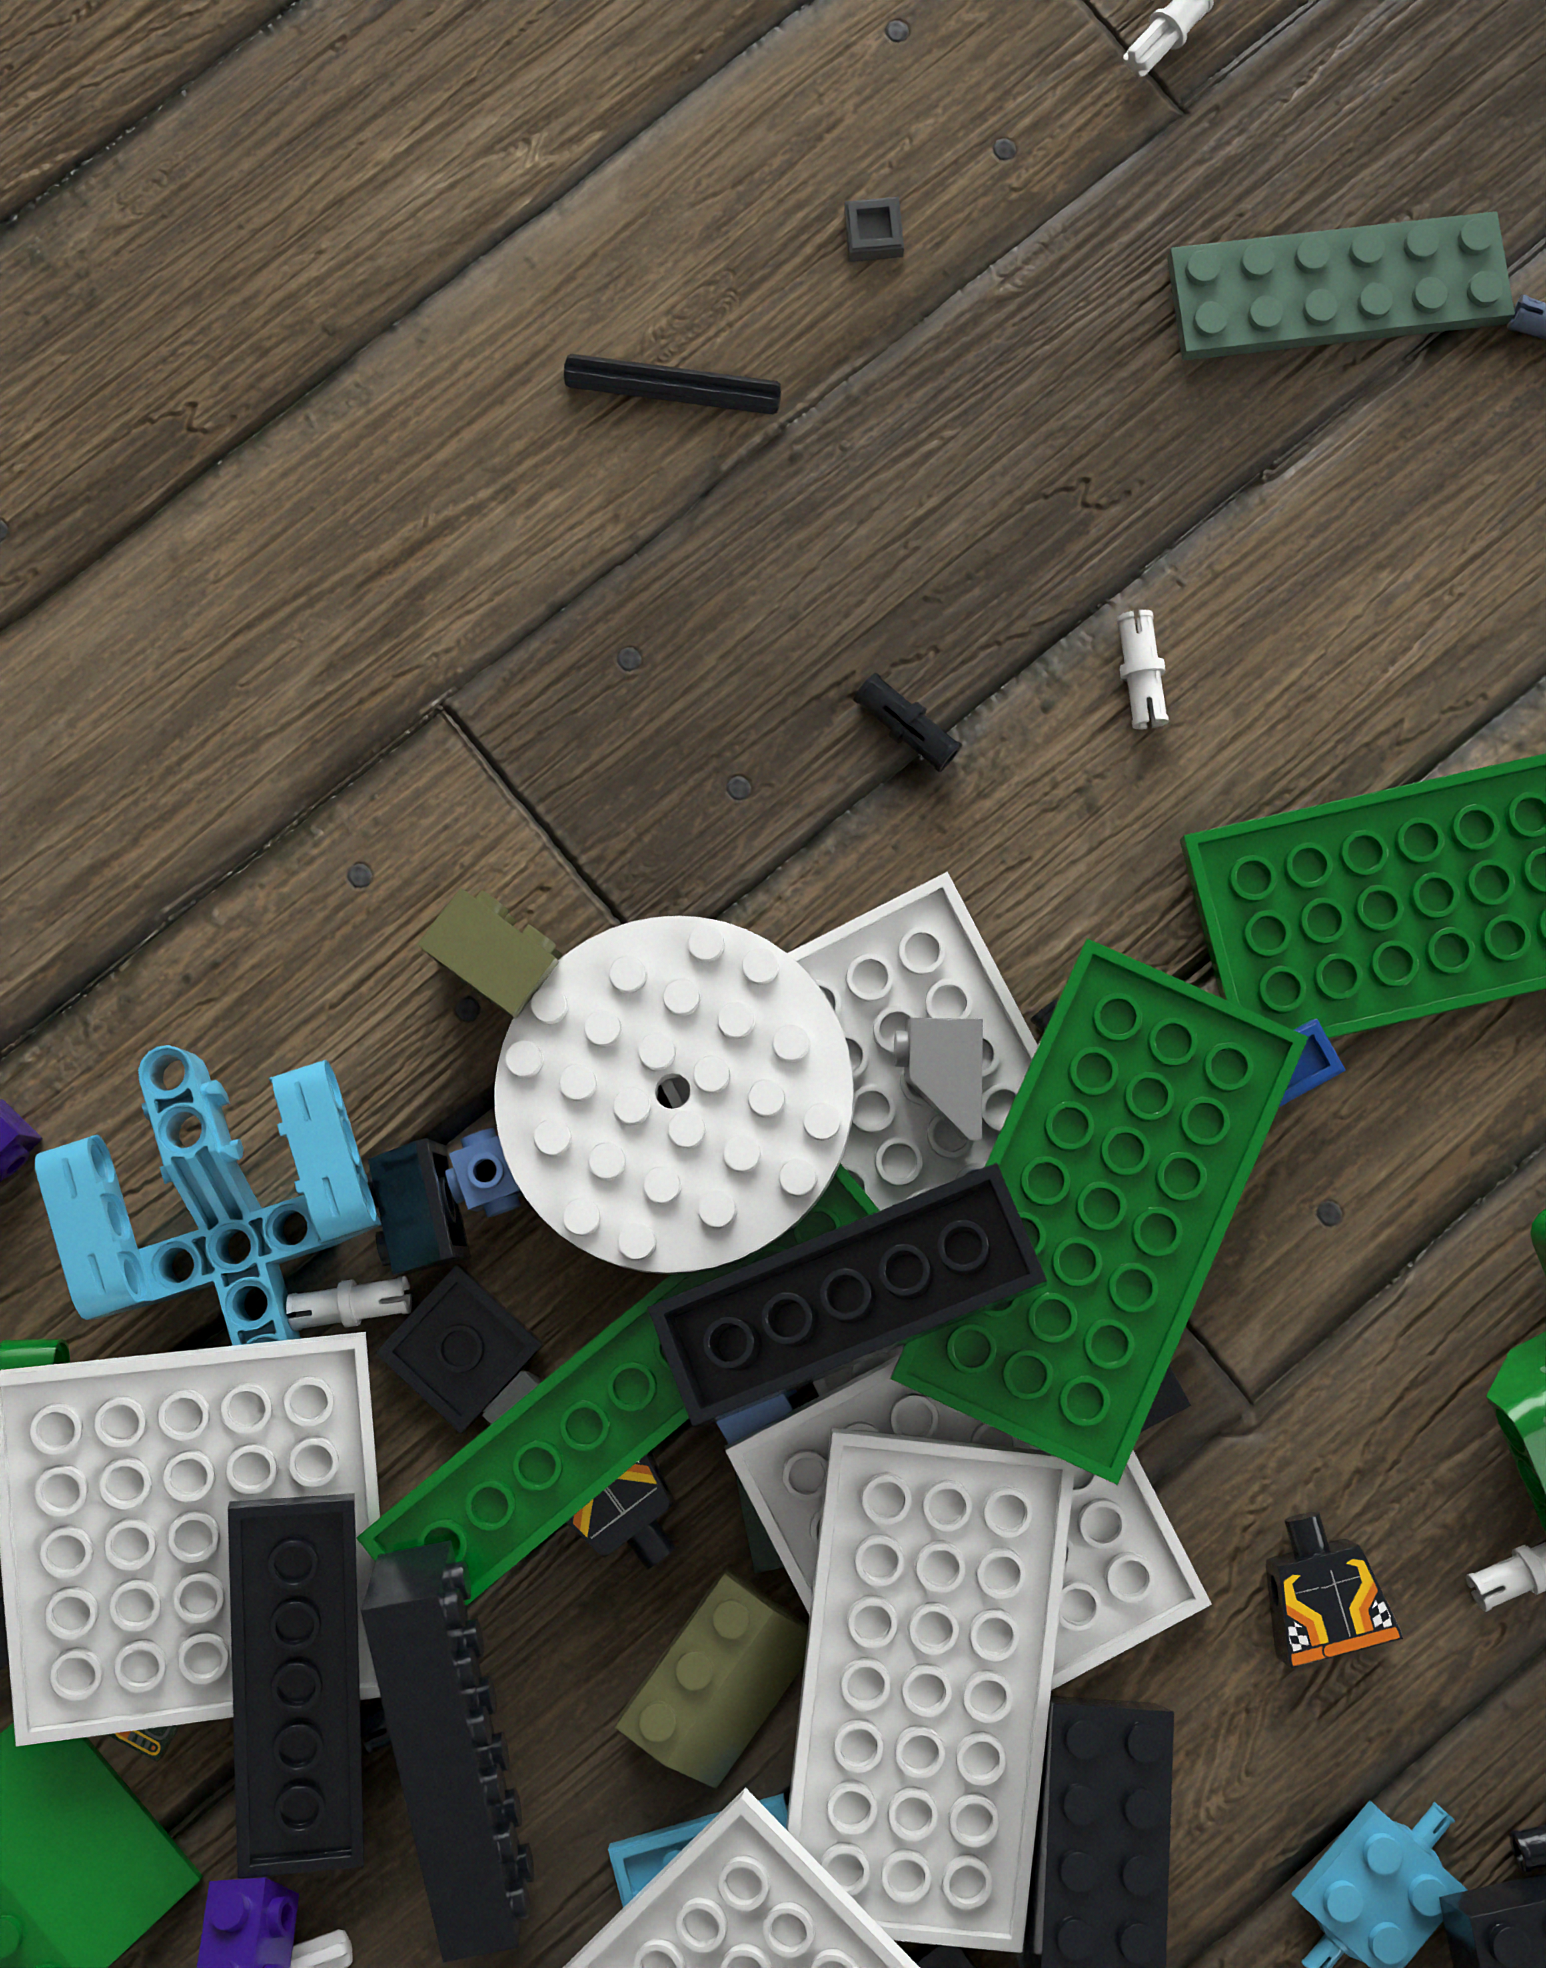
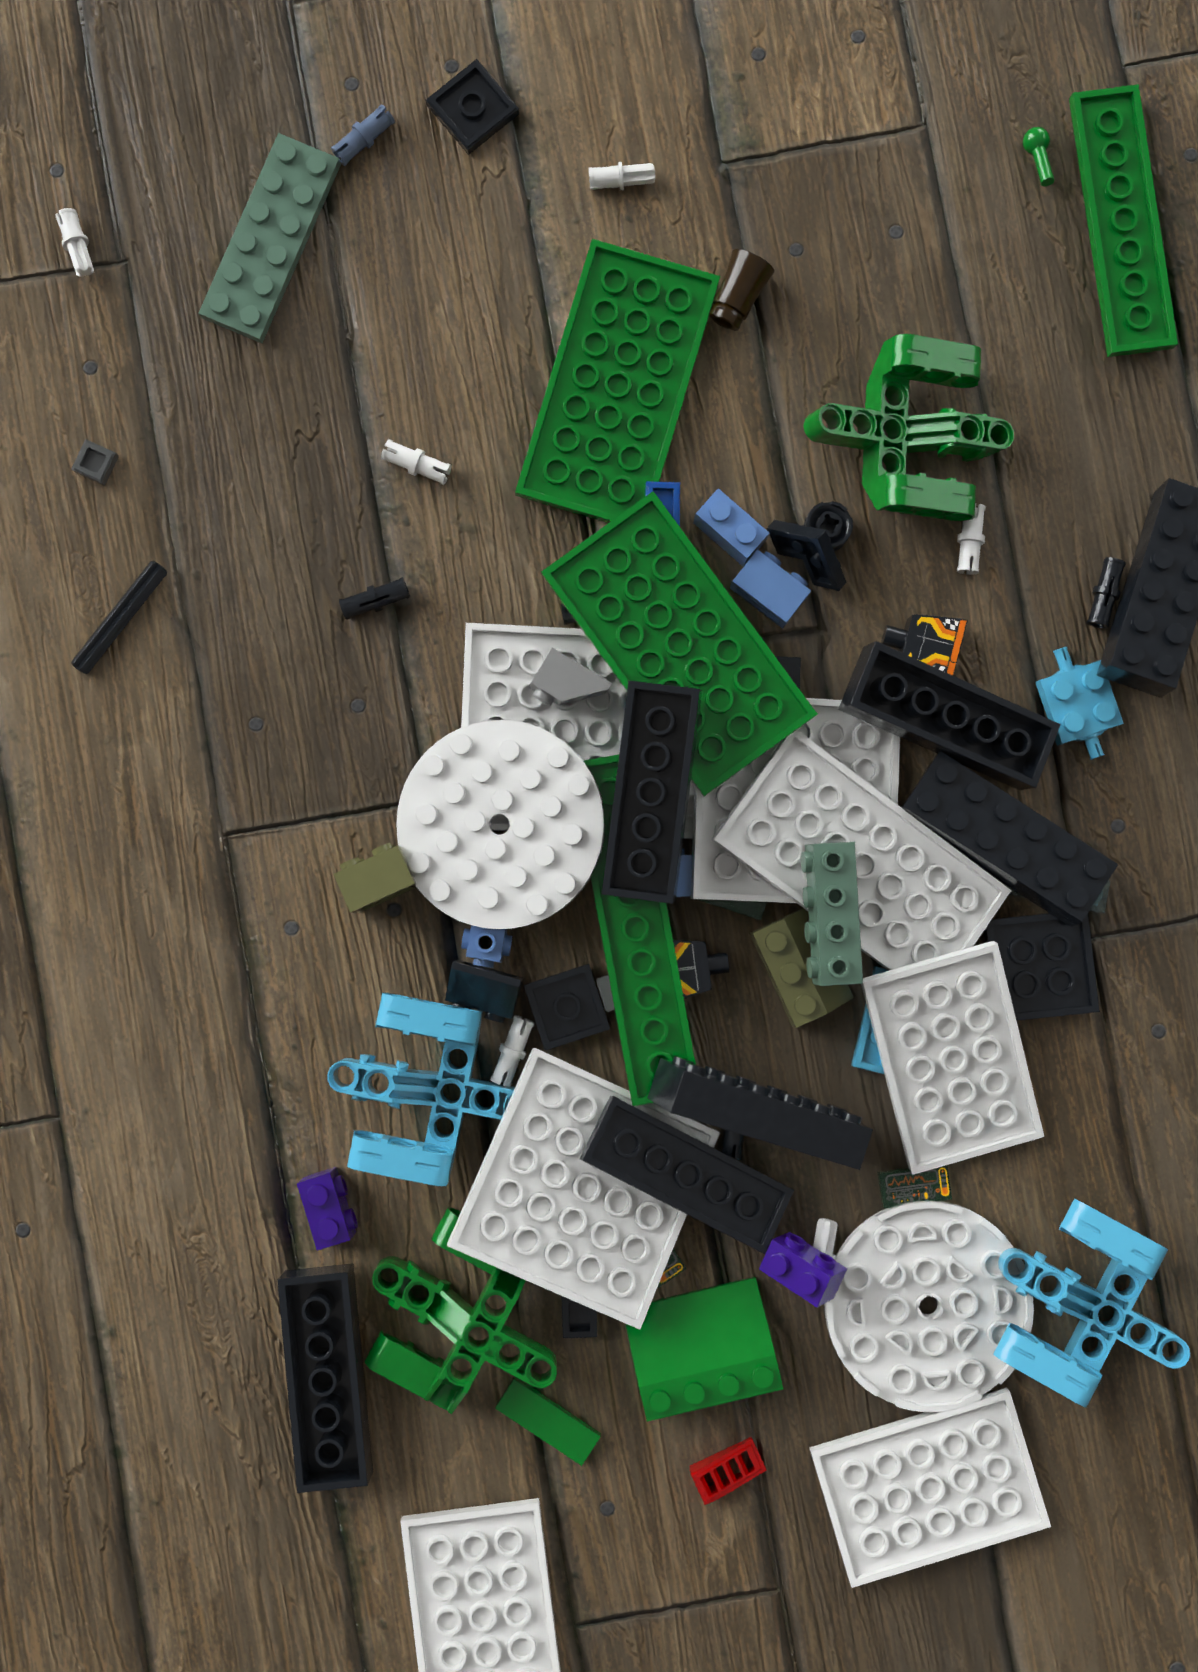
camera: 65 degrees left, 5 degrees up
(820, 1688) = (833, 914): none -> sand green brick
(1236, 1698) = (949, 716): none -> black brick
(1269, 1299) = (770, 587): none -> medium blue brick
(1324, 1185) = (730, 527): none -> medium blue brick
(1368, 1329) = (812, 547): none -> black plate
(1413, 1334) = (832, 518): none -> black wheel

